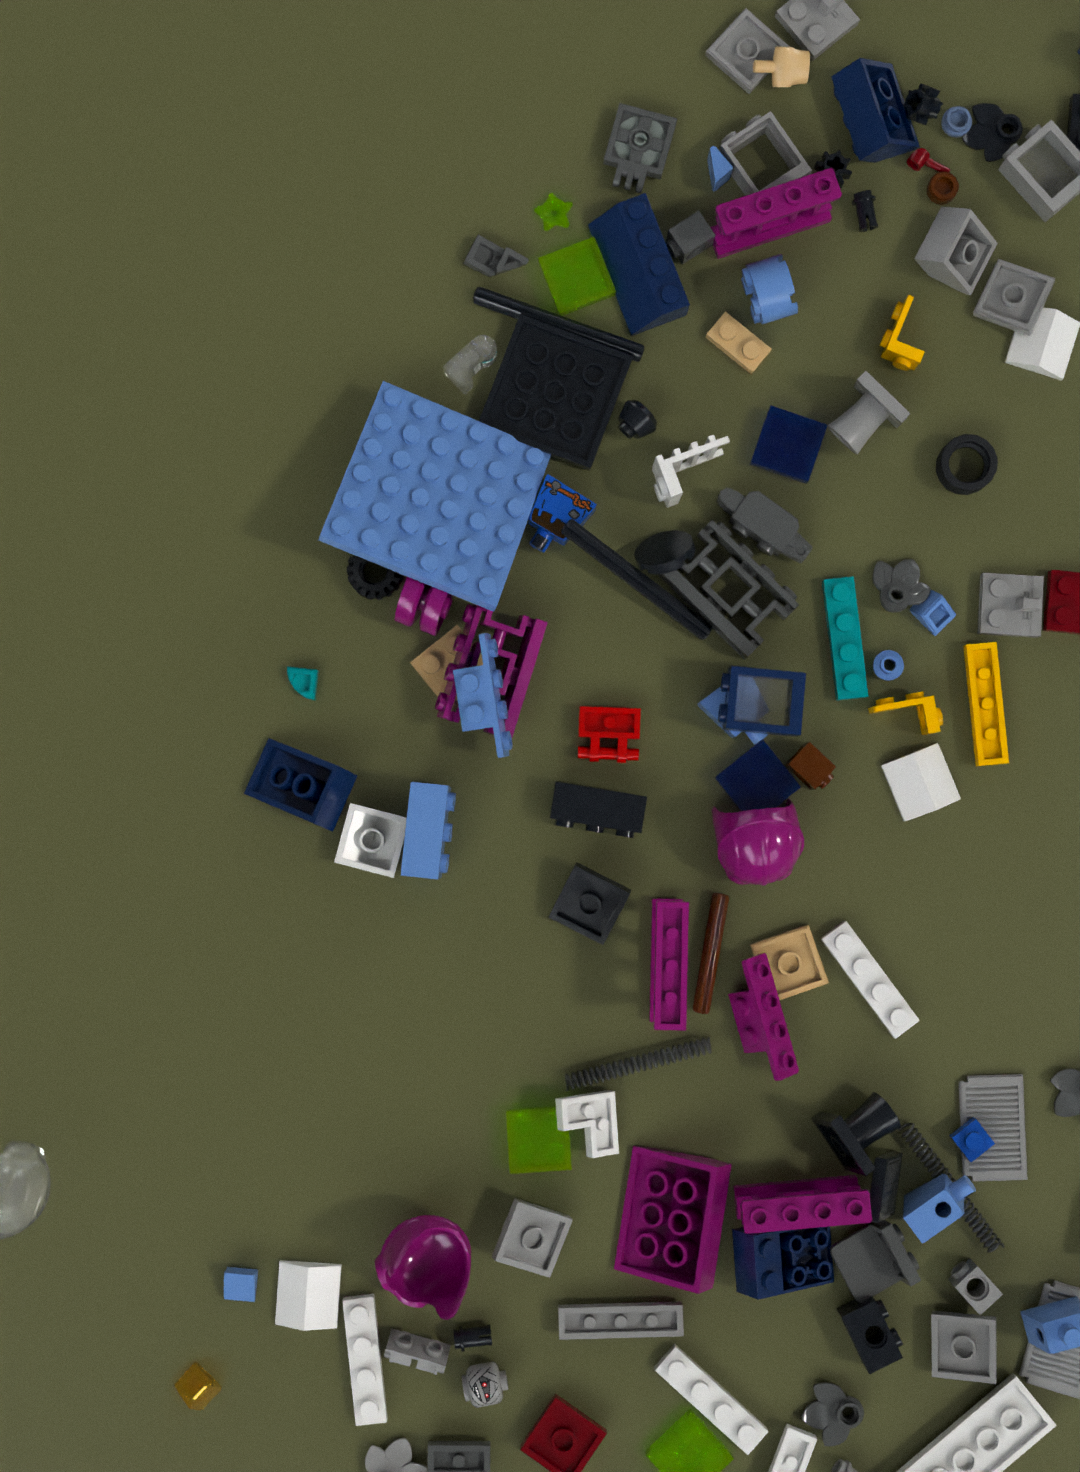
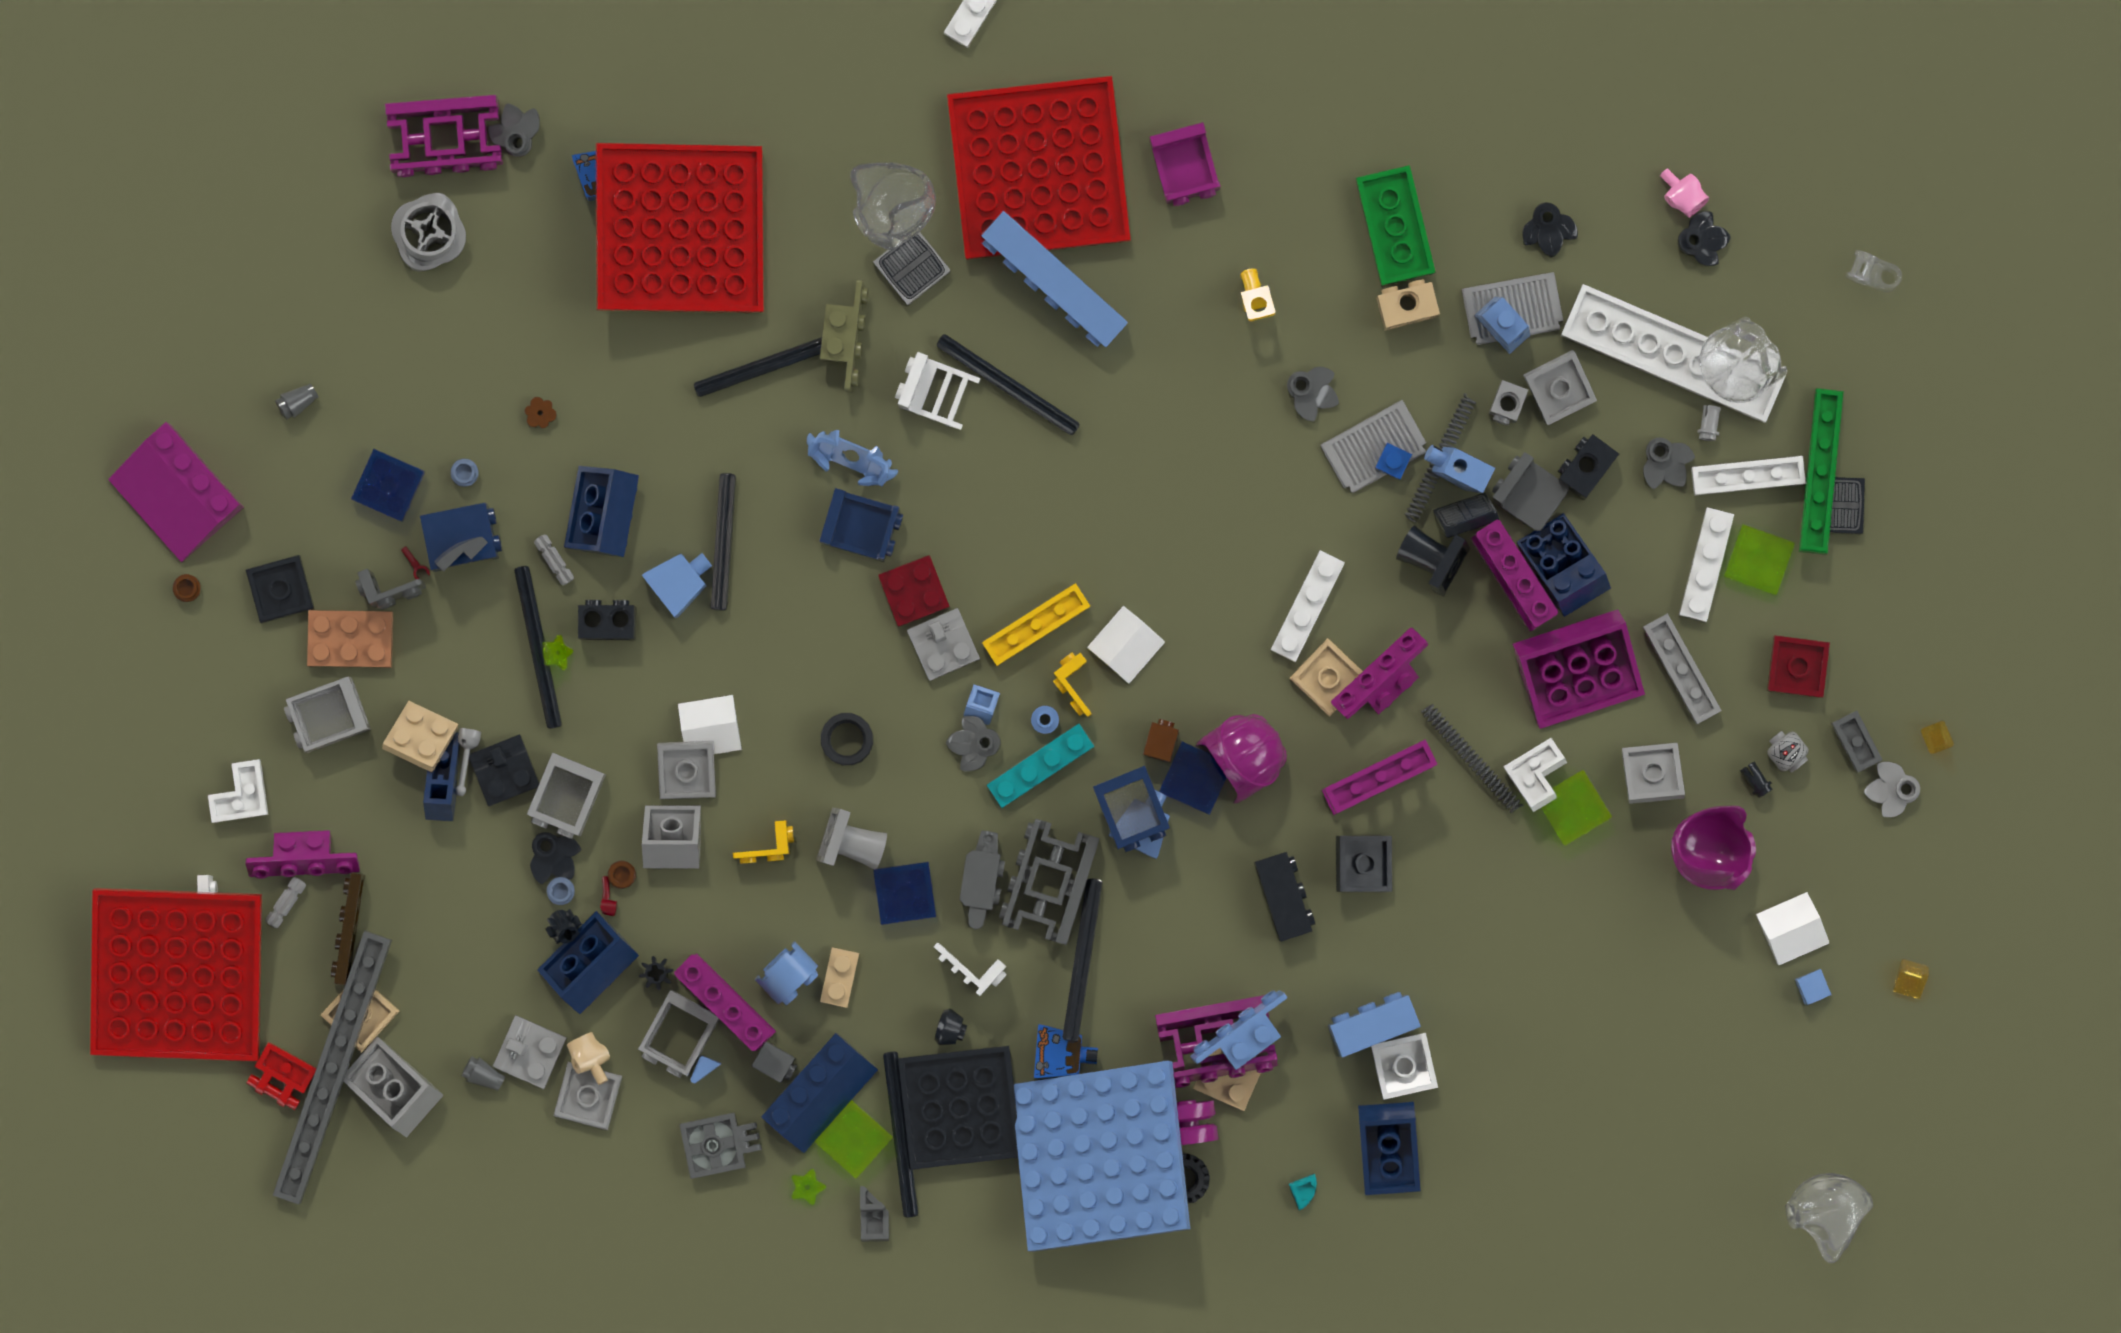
camera: 115 degrees left, 0 degrees up
(365, 1359) = (1819, 856): white plate -> none
(430, 1353) = (1792, 831): light grey hinge -> none
(471, 359) = (960, 1187): clear leg -> none
(612, 724) = (1209, 920): red plate -> none
(664, 552) = (1048, 949): black tile -> none
(710, 953) = (1352, 745): reddish brown axle -> none
(865, 209) = (675, 929): black pin -> none

